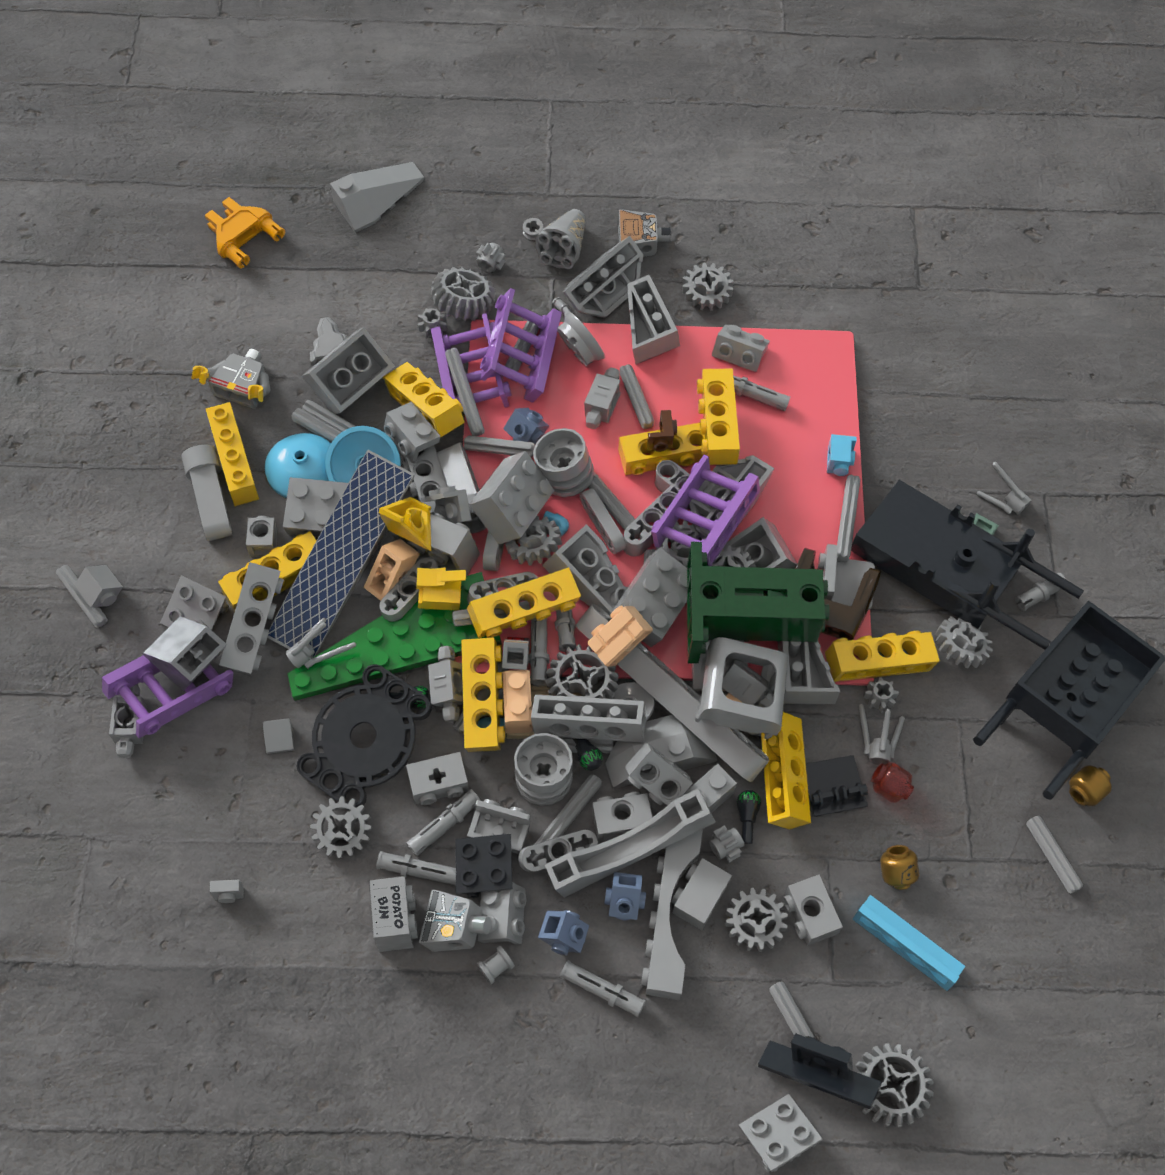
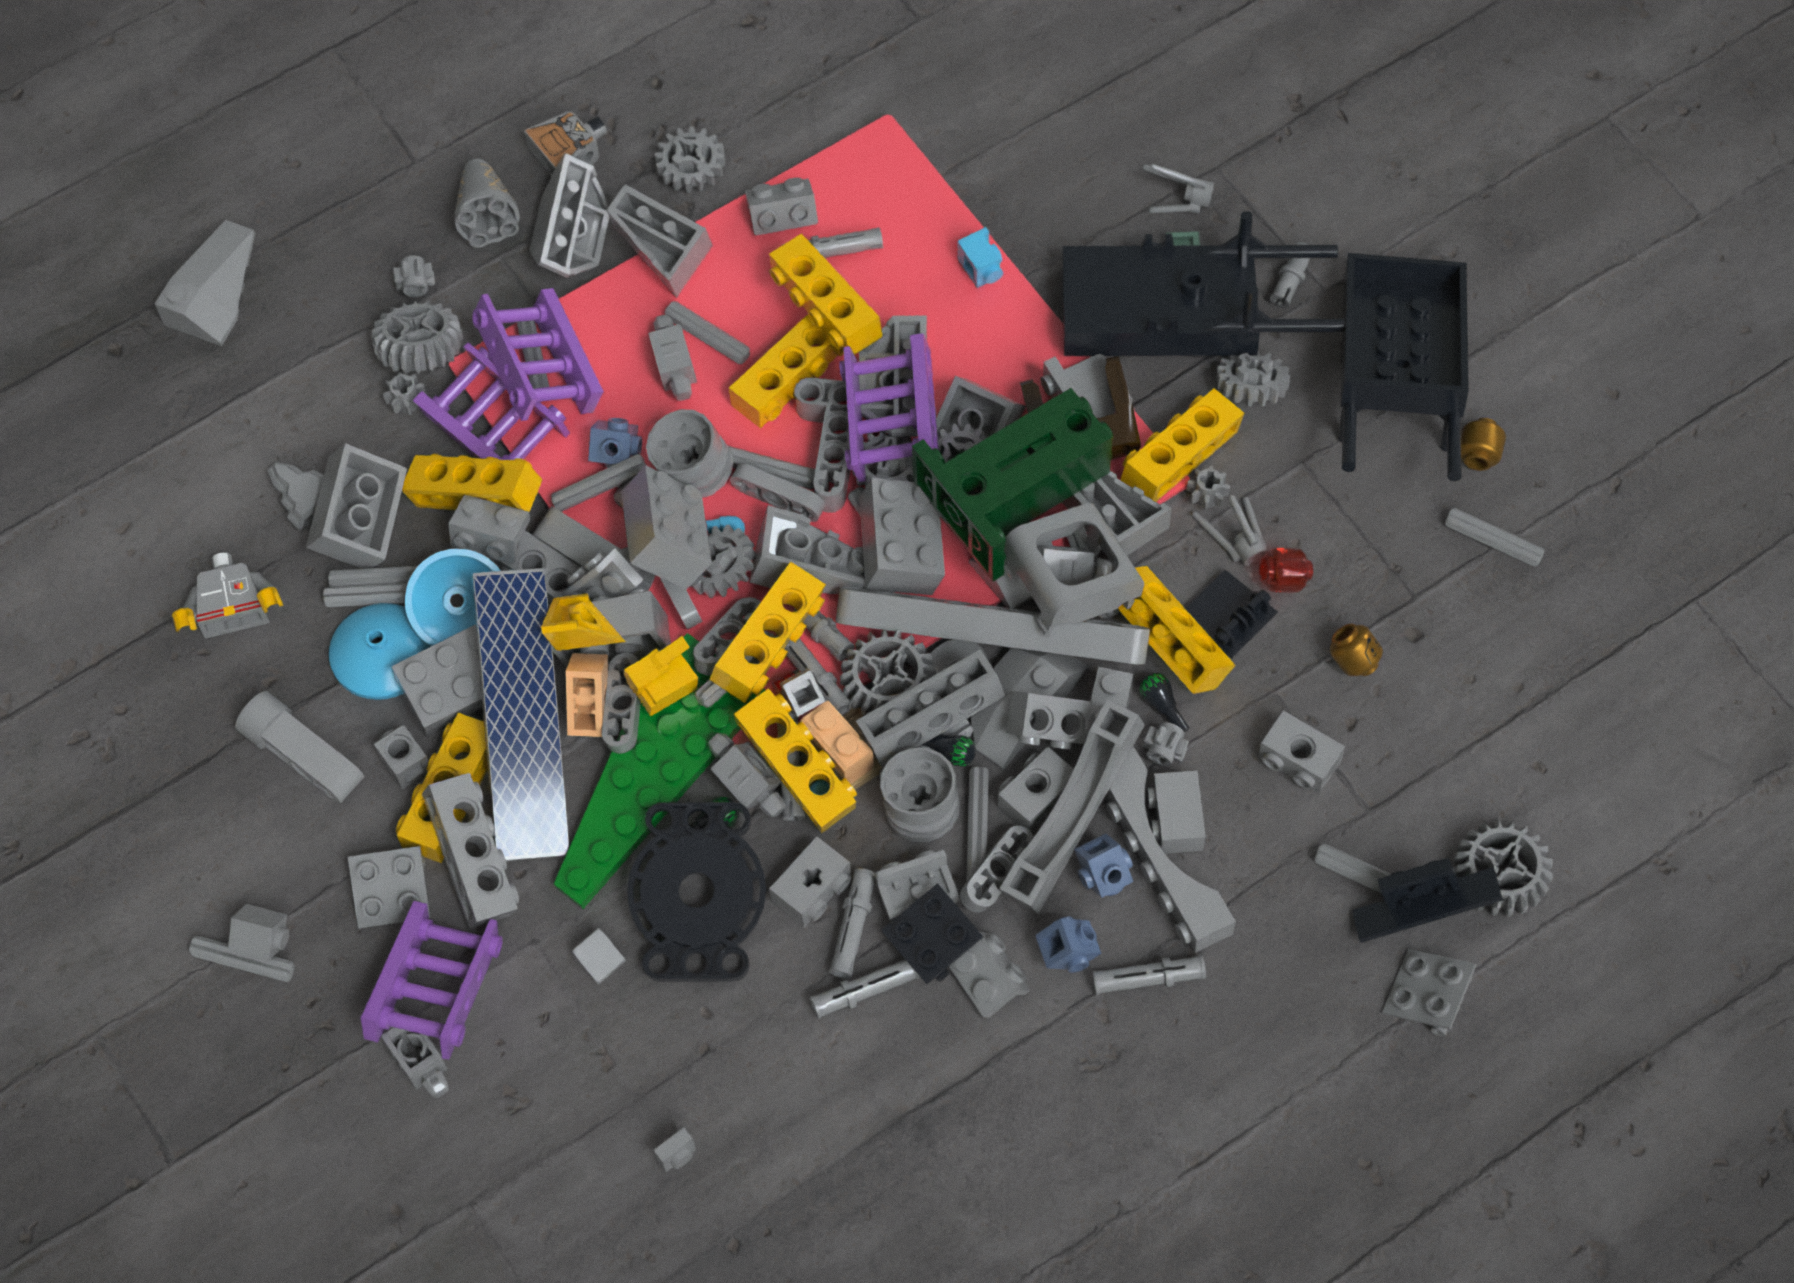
camera: 30 degrees left, 0 degrees up
(184, 651) = (431, 929): flat silver slope -> none
(232, 454) = (299, 690): yellow brick -> none
(239, 228) = (78, 424): light orange connector -> none
(302, 651) = (554, 847): light grey plant -> none
(331, 836) = (765, 1004): light grey gear -> none
(391, 914) = (878, 1047): light grey brick -> none
(452, 923) = (946, 1014): light grey torso -> none
(464, 392) = (510, 445): light grey axle -> none
(495, 965) = (1022, 1027): light grey bush -> none
(527, 226) = (441, 207): light grey bush -> none
(577, 335) = (592, 302): light grey piece -> none
(619, 635) = (900, 598): light nougat brick -> none
(663, 440) = (782, 351): reddish brown bracket -> none
(744, 922) = (1251, 785): light grey gear -> none
(848, 518) = (1037, 319): light grey axle -> none
(909, 943) = (1417, 721): medium azure fence -> none

